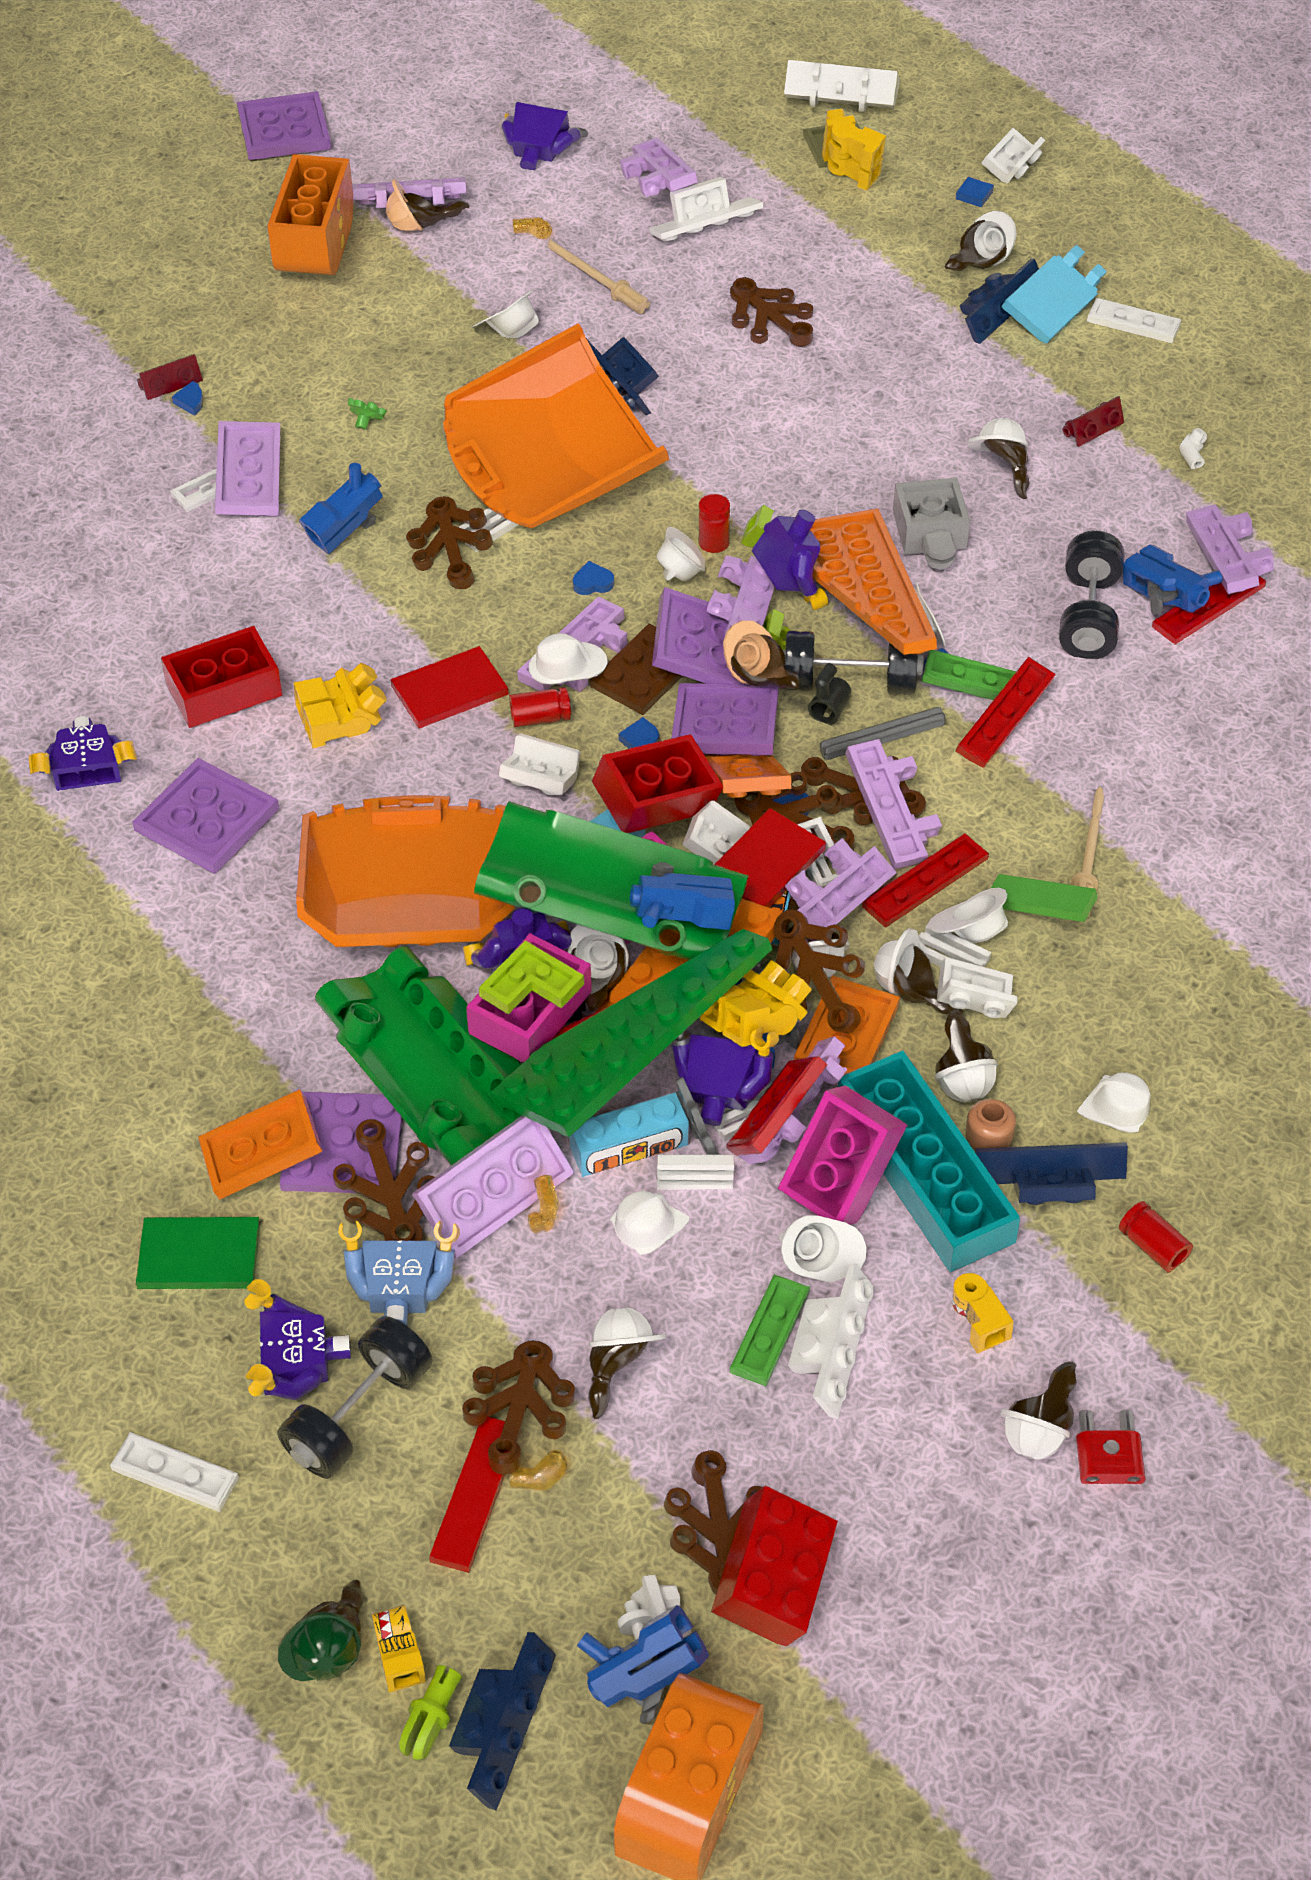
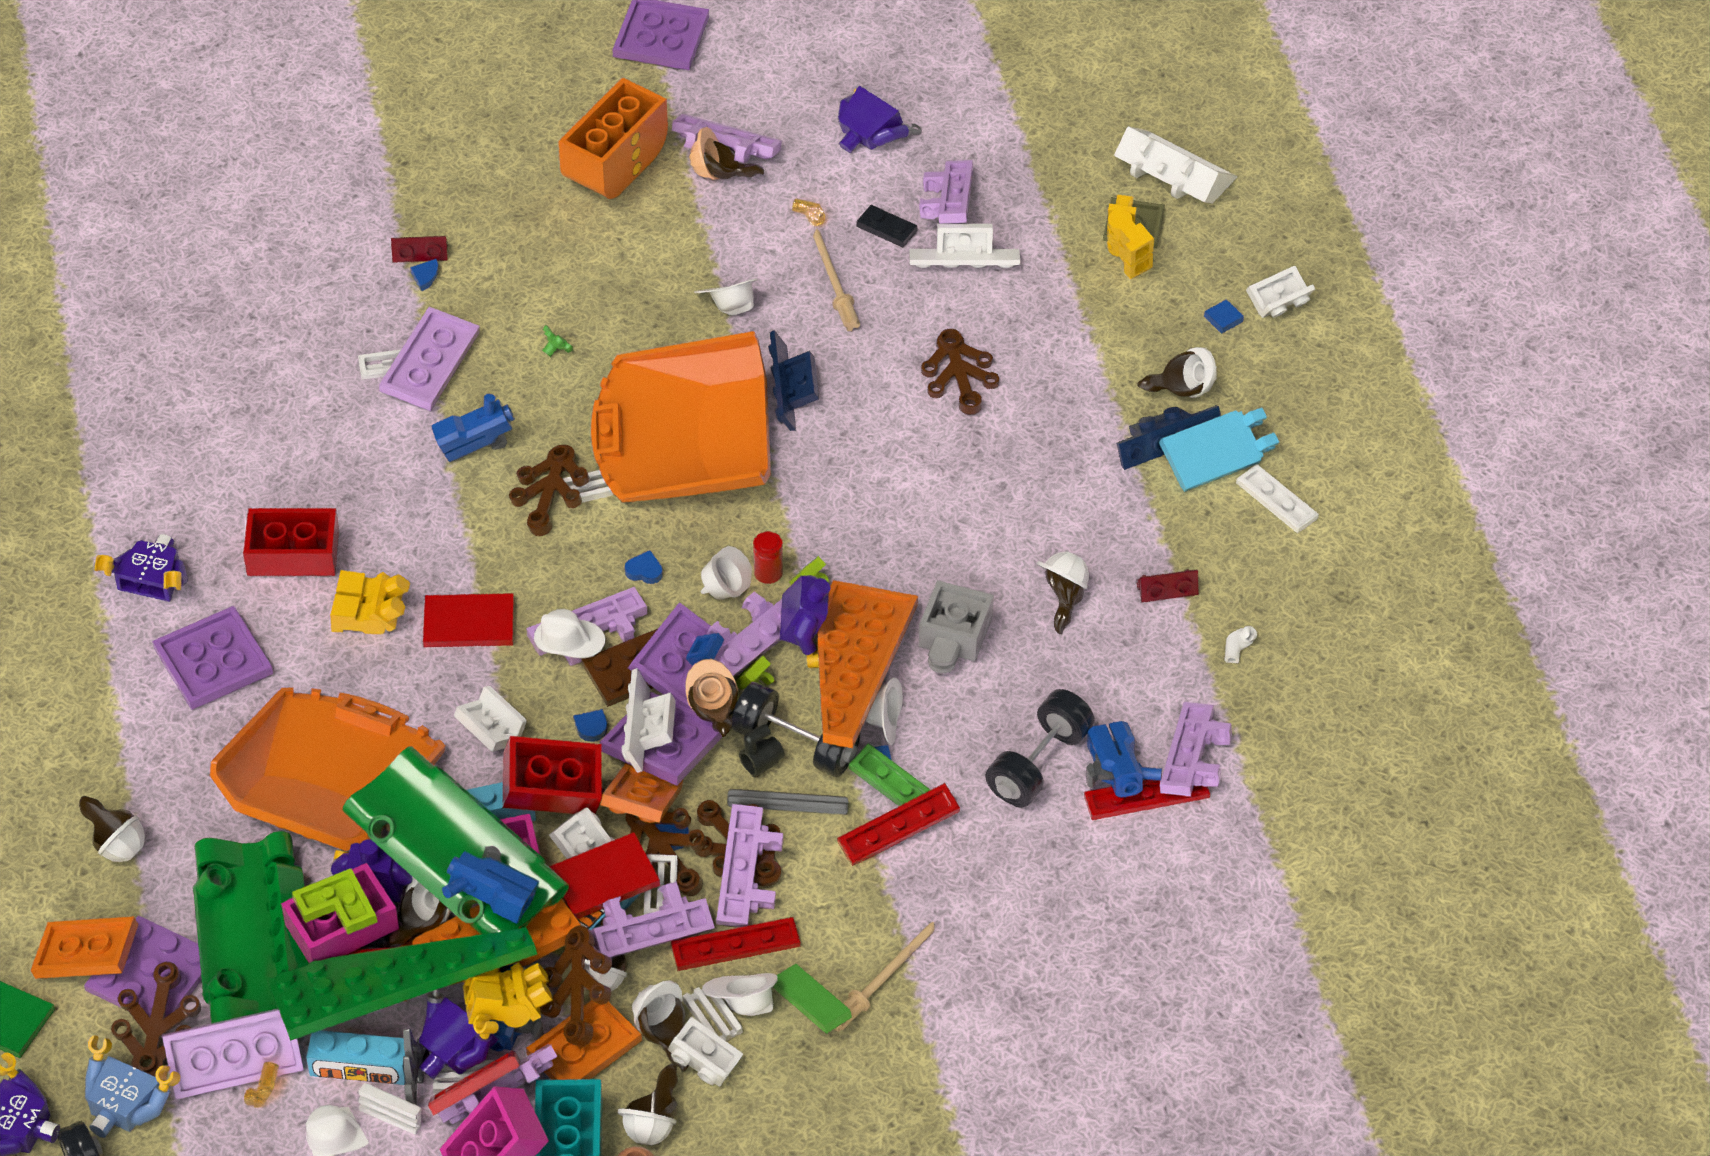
camera: 25 degrees right, 0 degrees up
(216, 1019) = (116, 833): none -> piece
(540, 707) = (524, 667): red piece -> none
(613, 216) = (886, 226): none -> black plate
(713, 704) = (648, 721): none -> white bracket
(718, 619) = (705, 648): none -> blue tile

